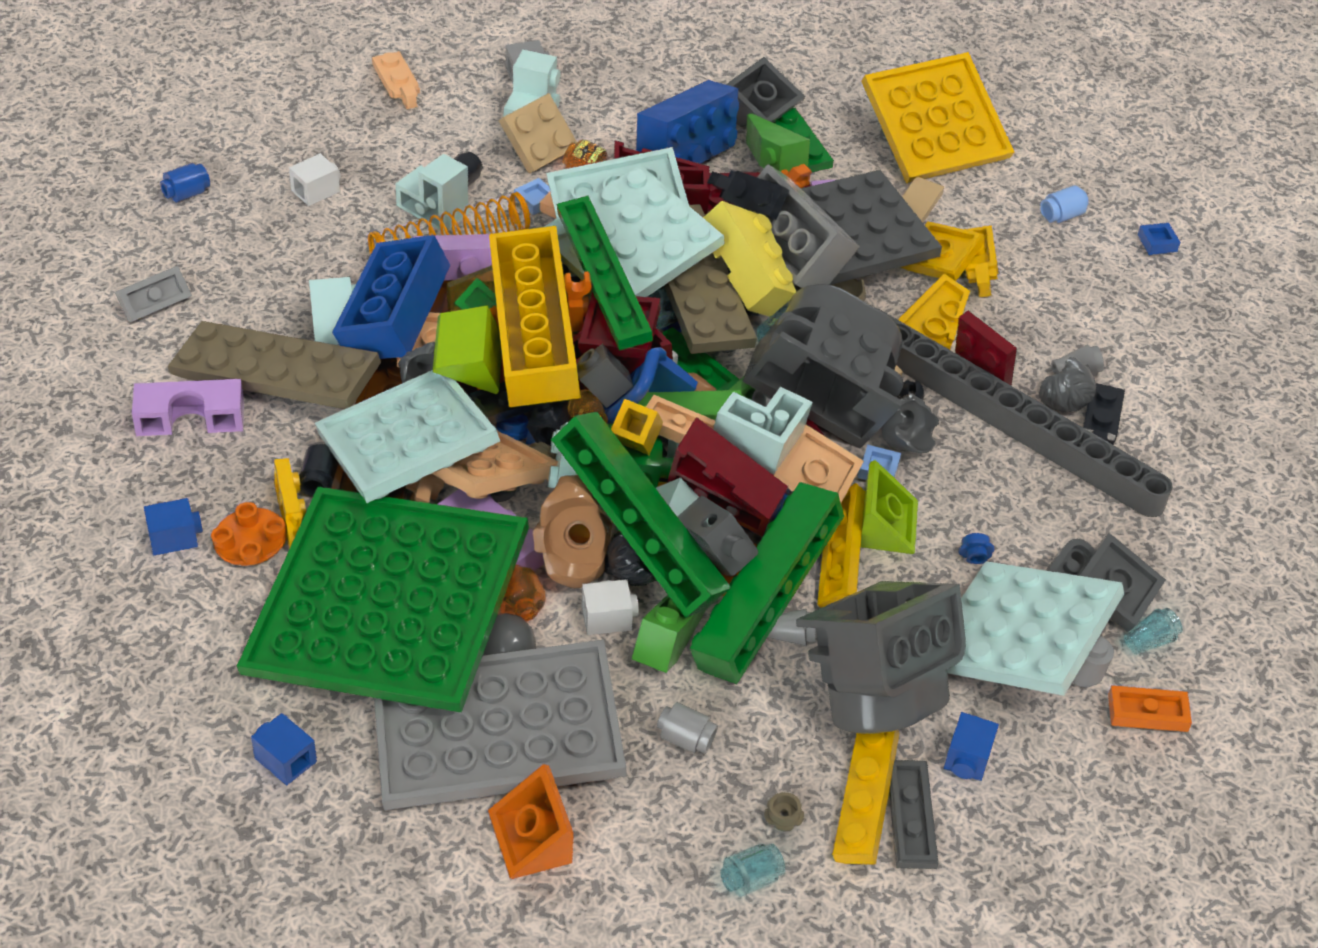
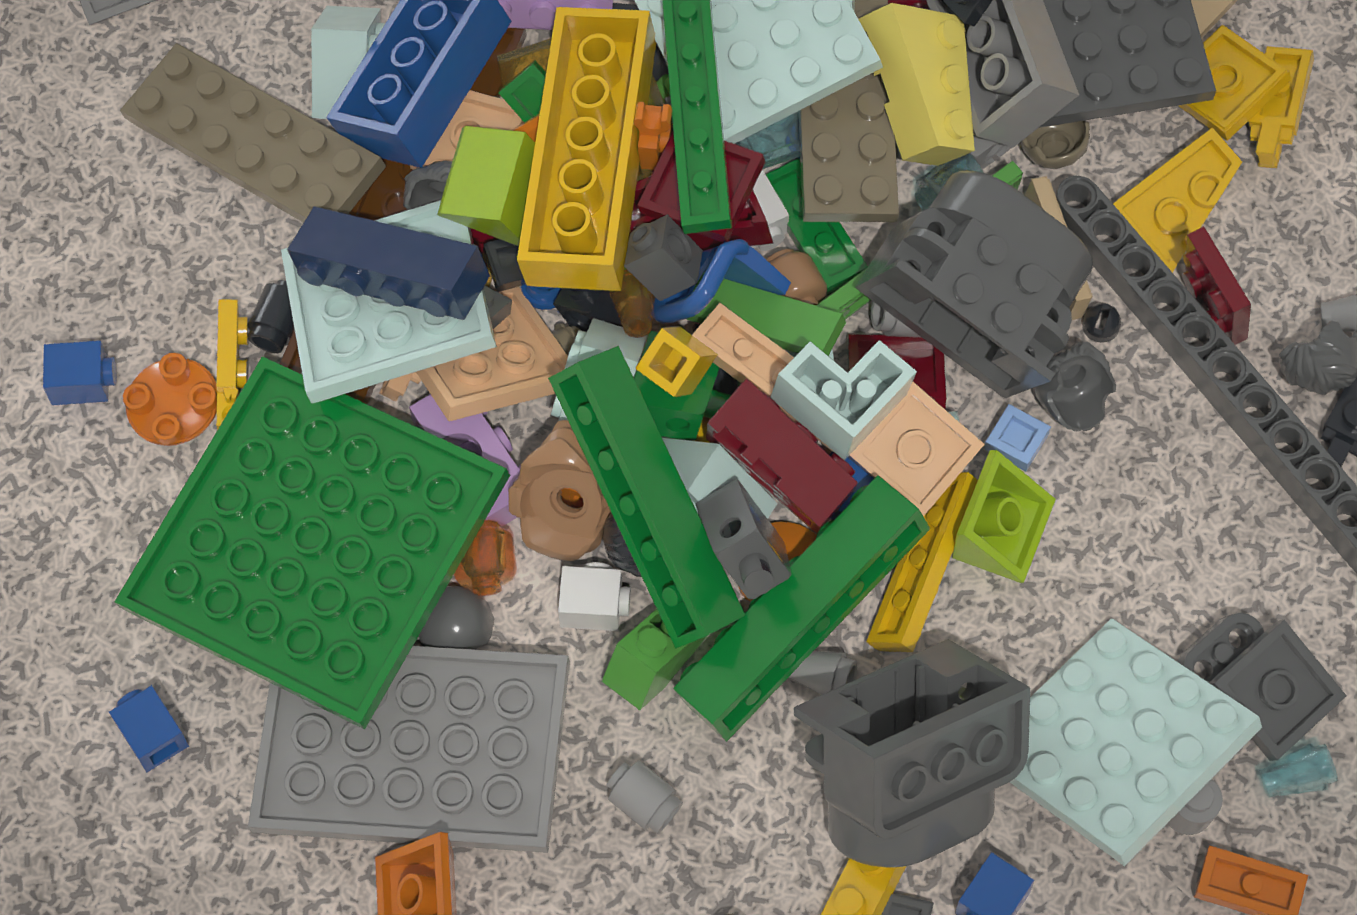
camera: 20 degrees right, 20 degrees up
(161, 403) = (96, 175): lavender arch -> none
(405, 402) = (389, 263): none -> dark blue brick
(976, 548) = (1105, 596): blue plate -> none

